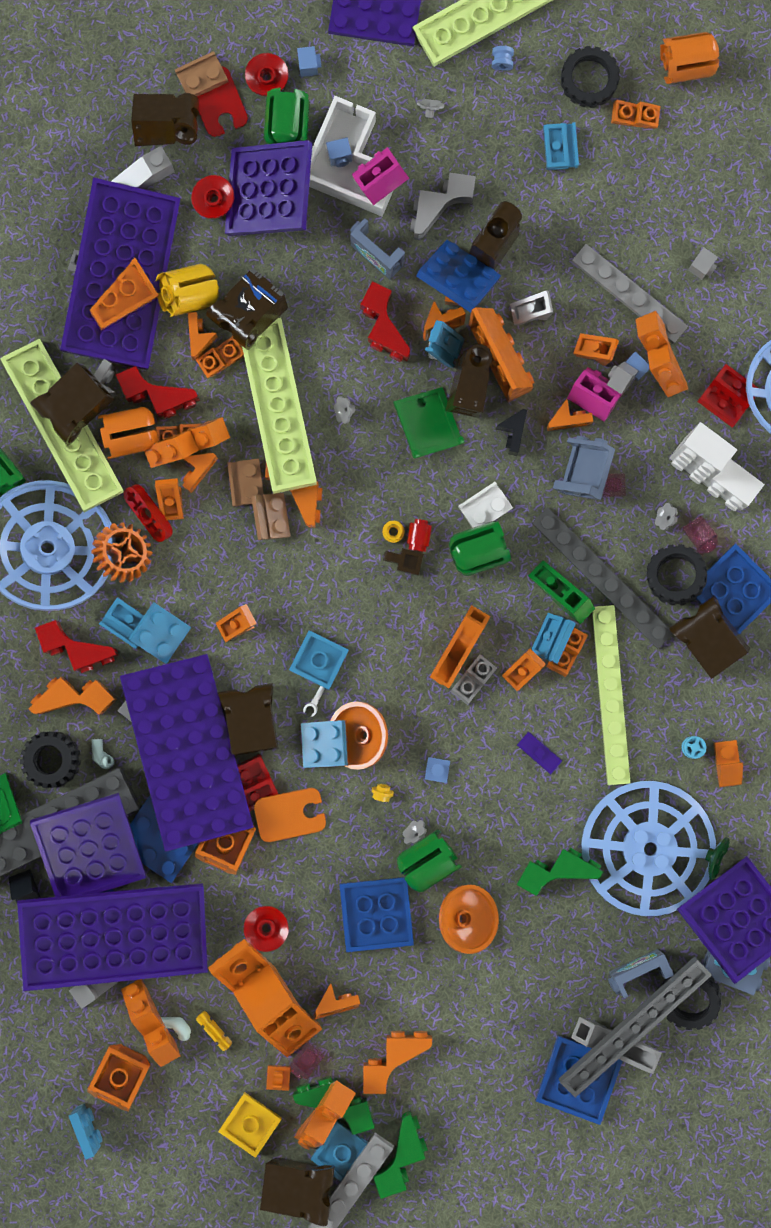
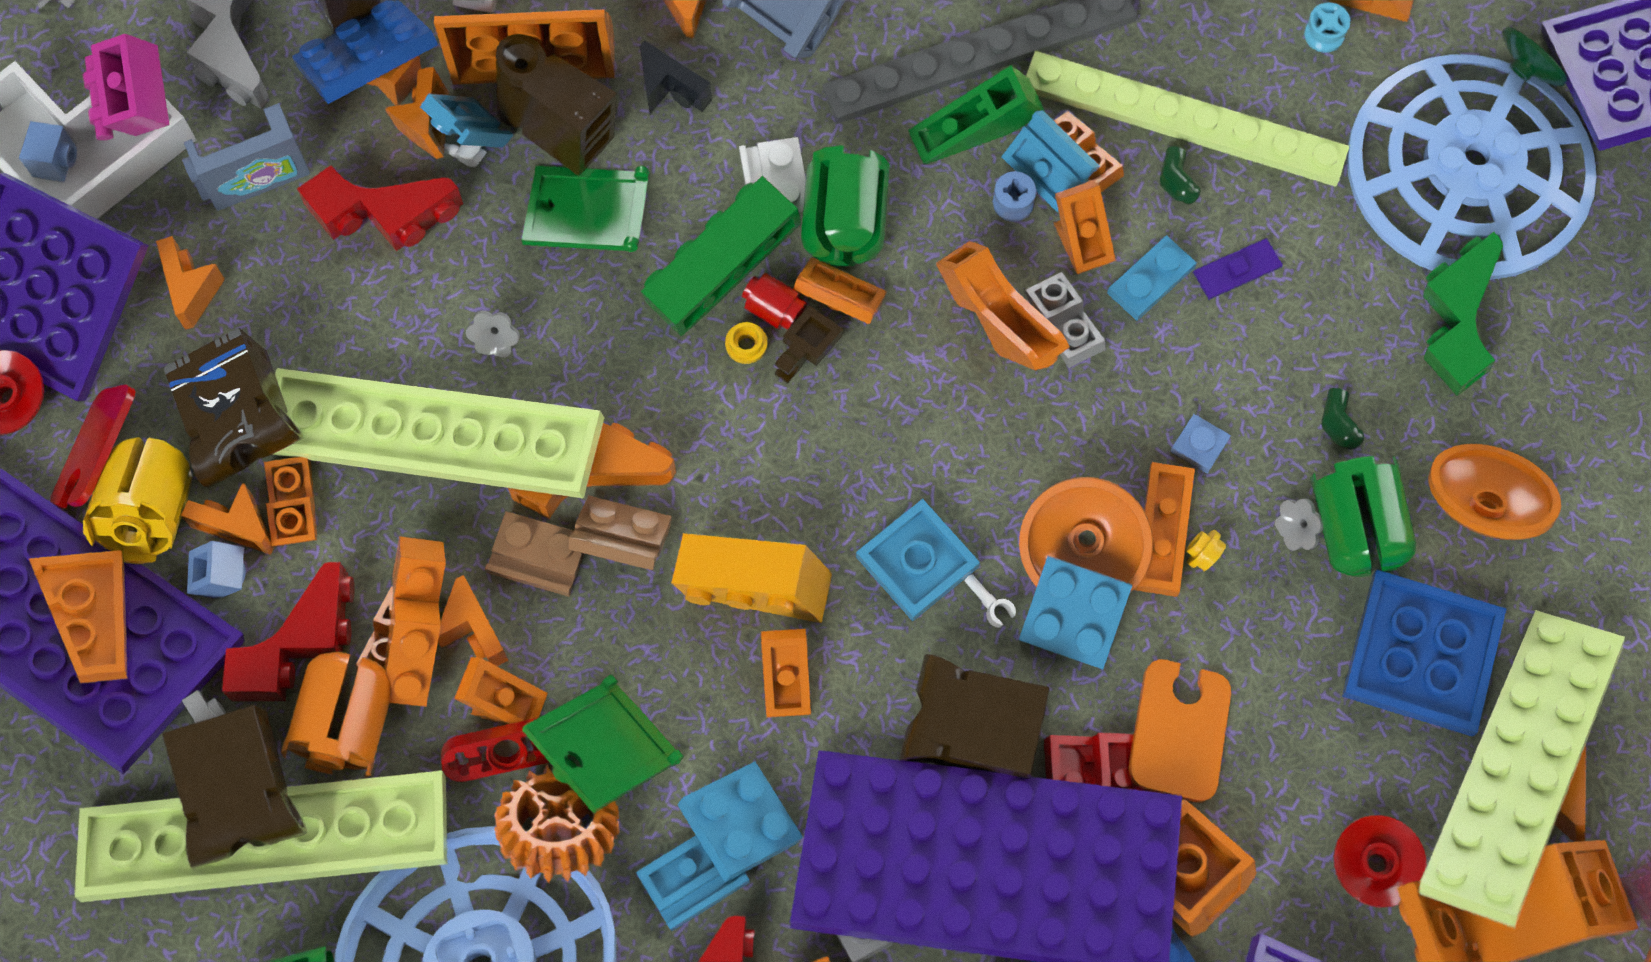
camera: 65 degrees left, 15 degrees down
(170, 557) = (608, 738): none -> green container
(171, 341) = (215, 570): none -> medium blue plate
(204, 254) = (93, 446): none -> red piece
(274, 587) = (752, 575): none -> light orange wedge
(300, 254) = (188, 287): none -> orange slope
(331, 977) = (1522, 769): none -> yellowish green plate
(386, 769) = (1168, 514): none -> orange plate
(429, 500) = (721, 255): none -> green brick
(438, 564) = (839, 290): none -> orange plate
(476, 831) = (1338, 423): none -> dark green arm
(514, 712) = (1151, 278): none -> dark azure plate
(523, 629) = (1012, 206): none -> medium blue wheel
(573, 703) = (1175, 179): none -> dark green arm

